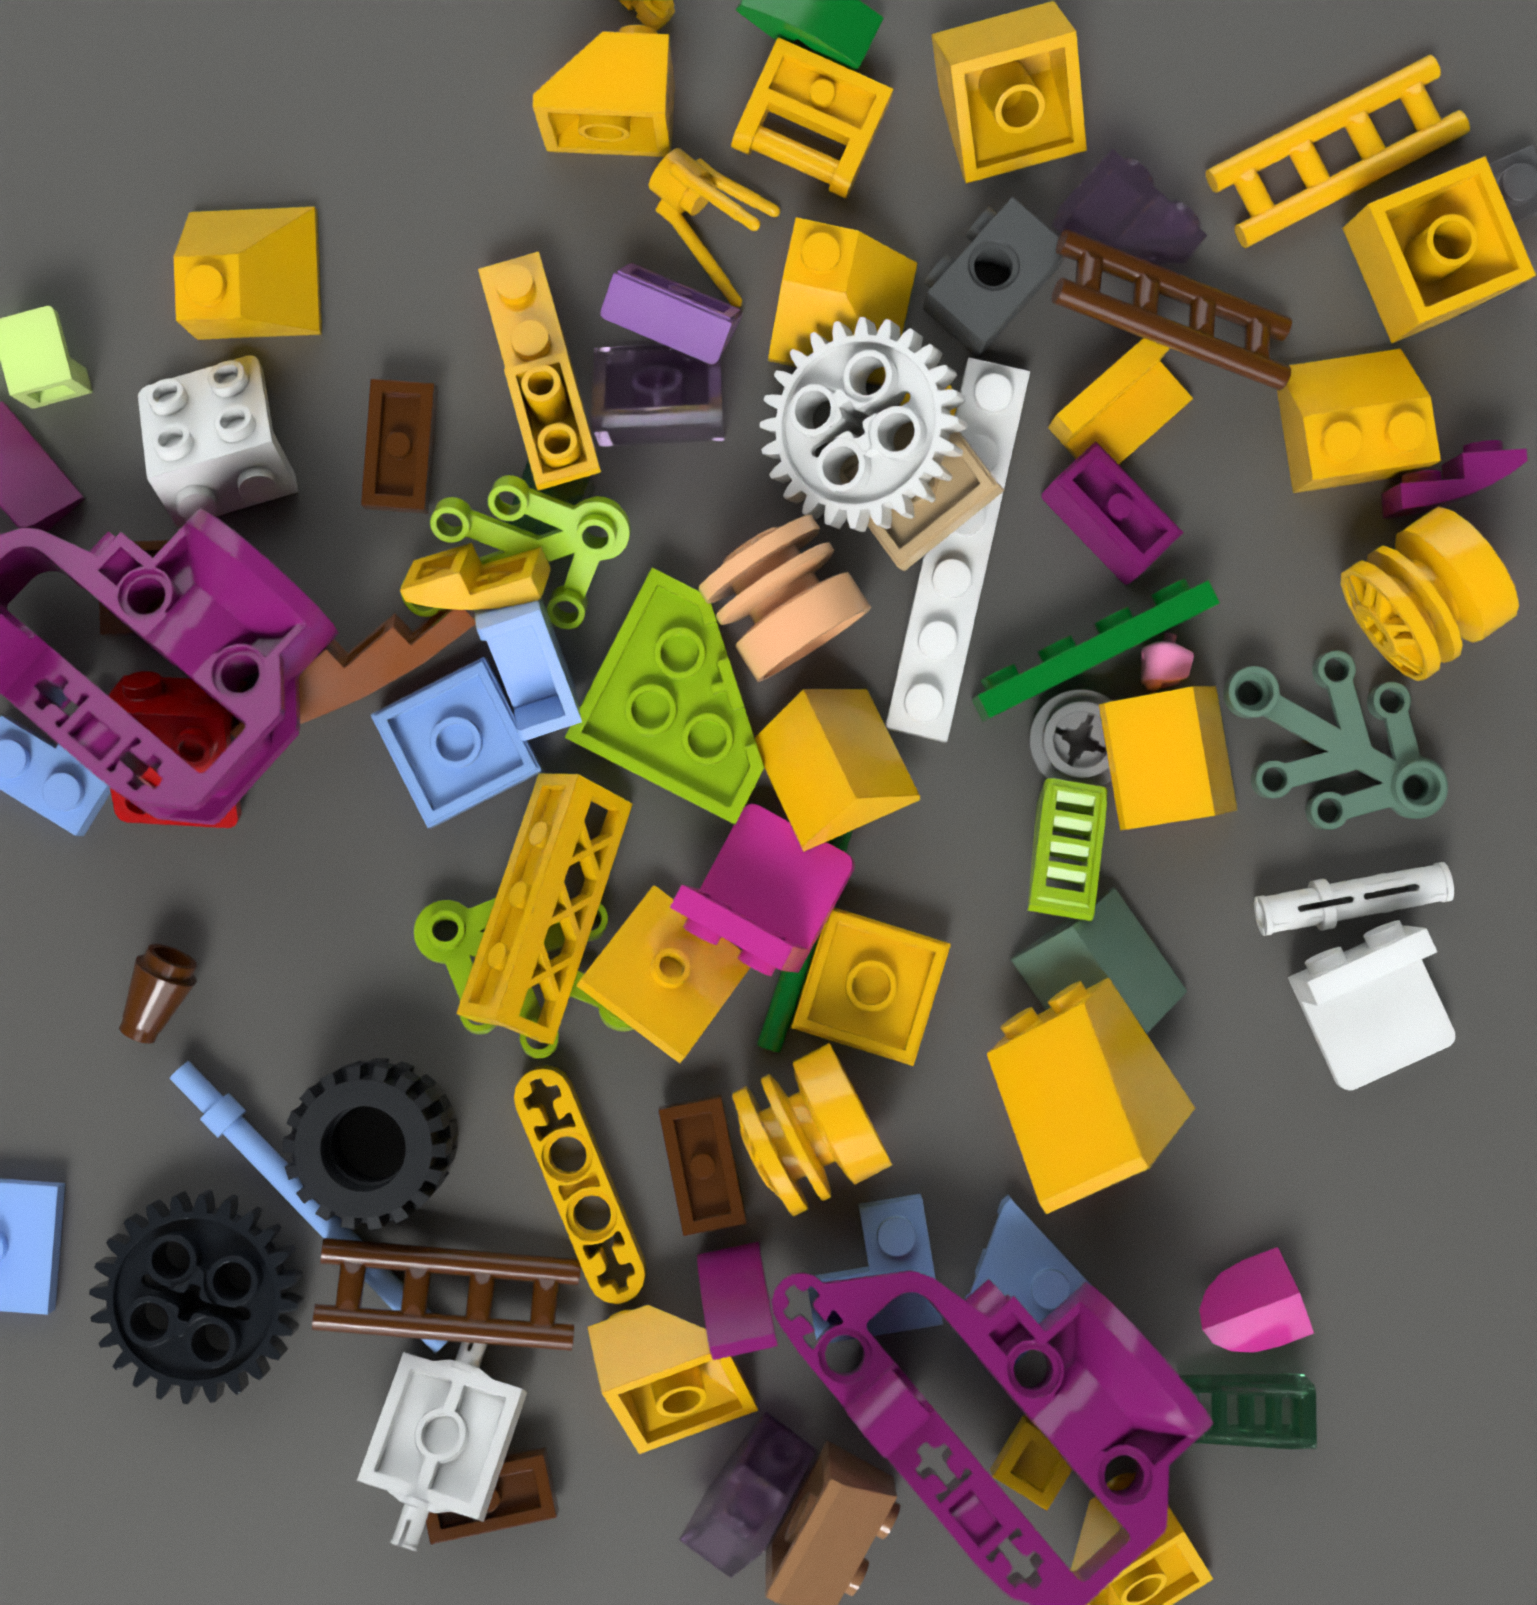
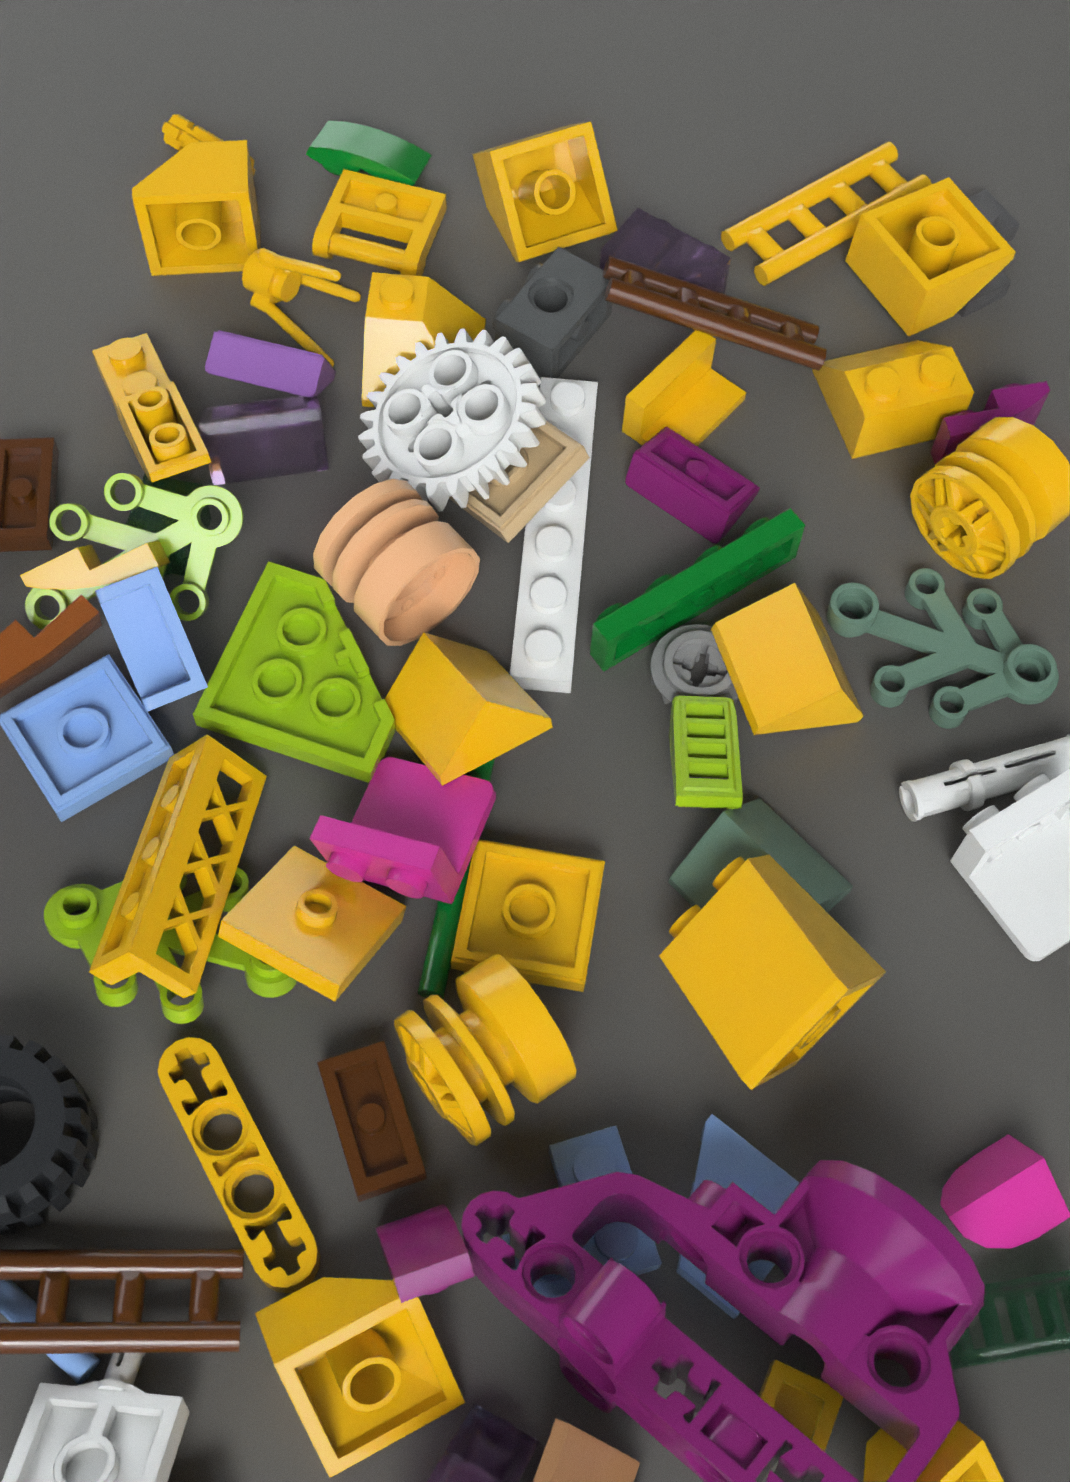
camera: 10 degrees left, 25 degrees down
(1164, 663) = (763, 581): bright pink piece -> none

